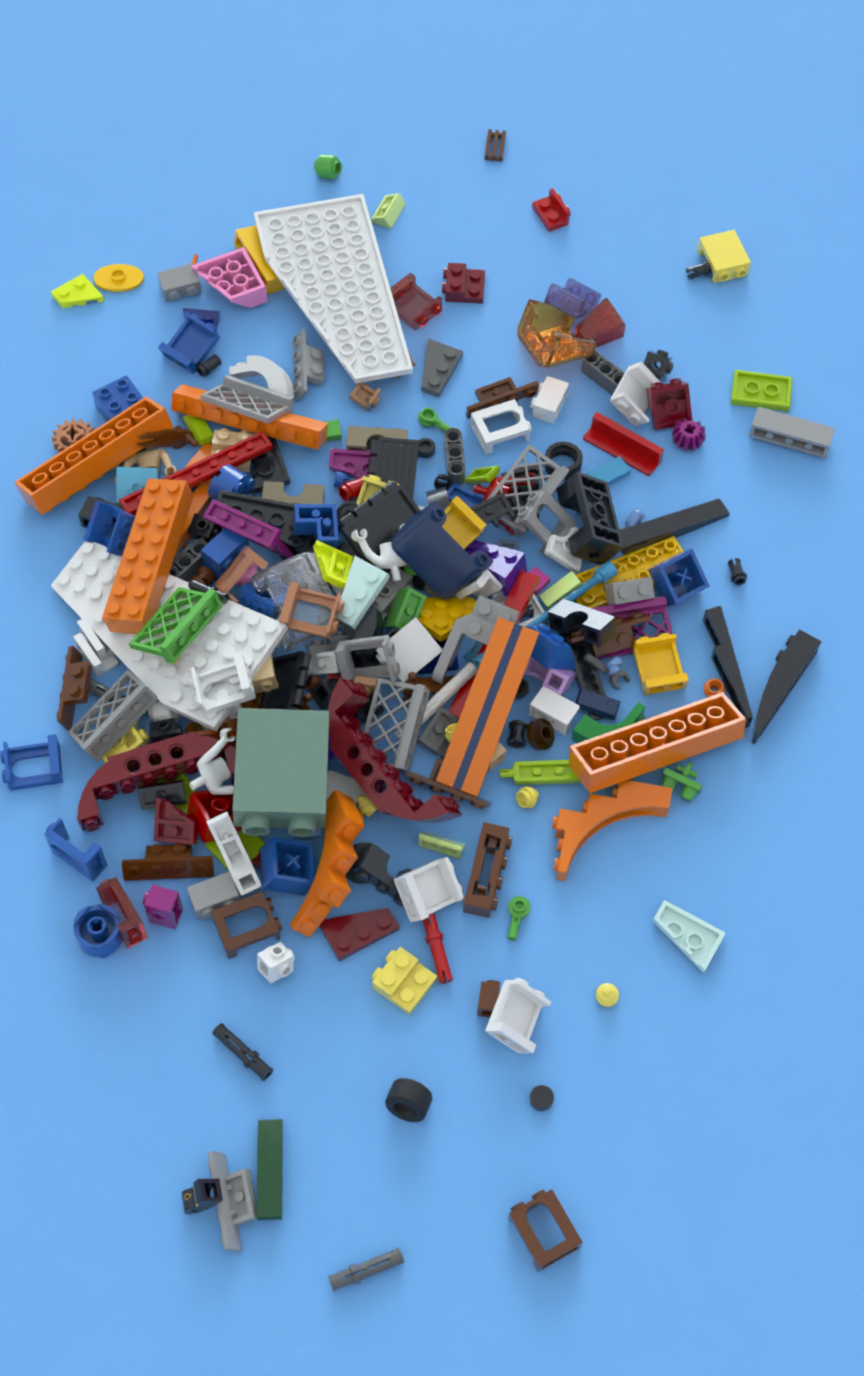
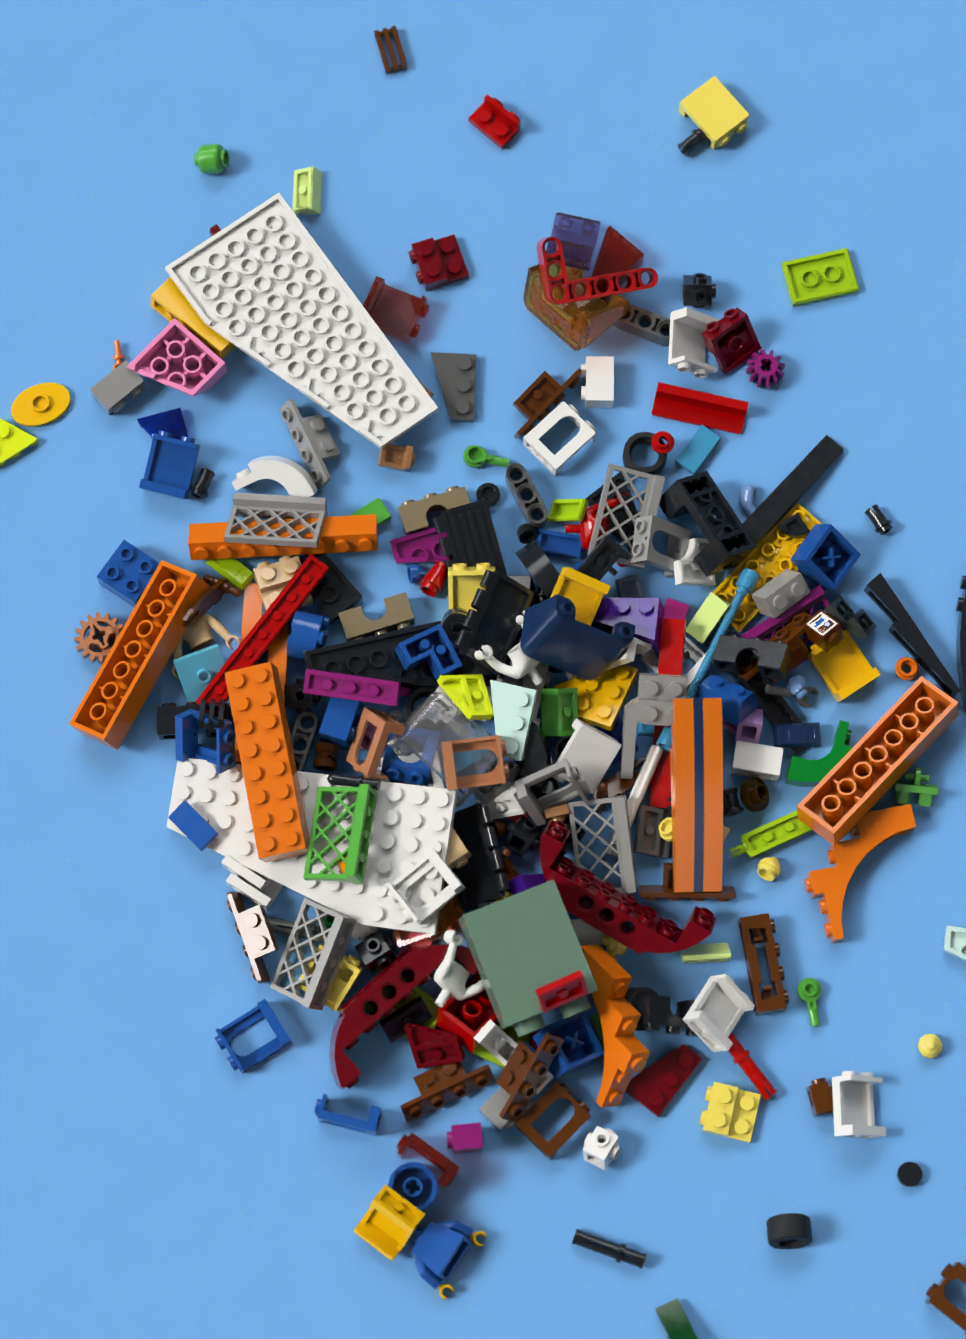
camera: 25 degrees left, 15 degrees up
(63, 947) = (389, 1222): none -> yellow panel
(69, 587) = (193, 825): none -> blue tile
(95, 990) = (441, 1249): none -> blue torso
(126, 506) = (212, 706): none -> black tile
(236, 869) = (525, 1072): none -> reddish brown bracket
(291, 798) = (561, 991): none -> red plate
(570, 321) = (589, 283): none -> red beam
(580, 456) = (659, 448): none -> red plate
(652, 626) = (823, 631): none -> reddish brown brick
(661, 549) = (794, 527): none -> black tile
(679, 629) = (855, 623): none -> pearl dark grey slope
(791, 432) = (874, 323): light grey brick -> none

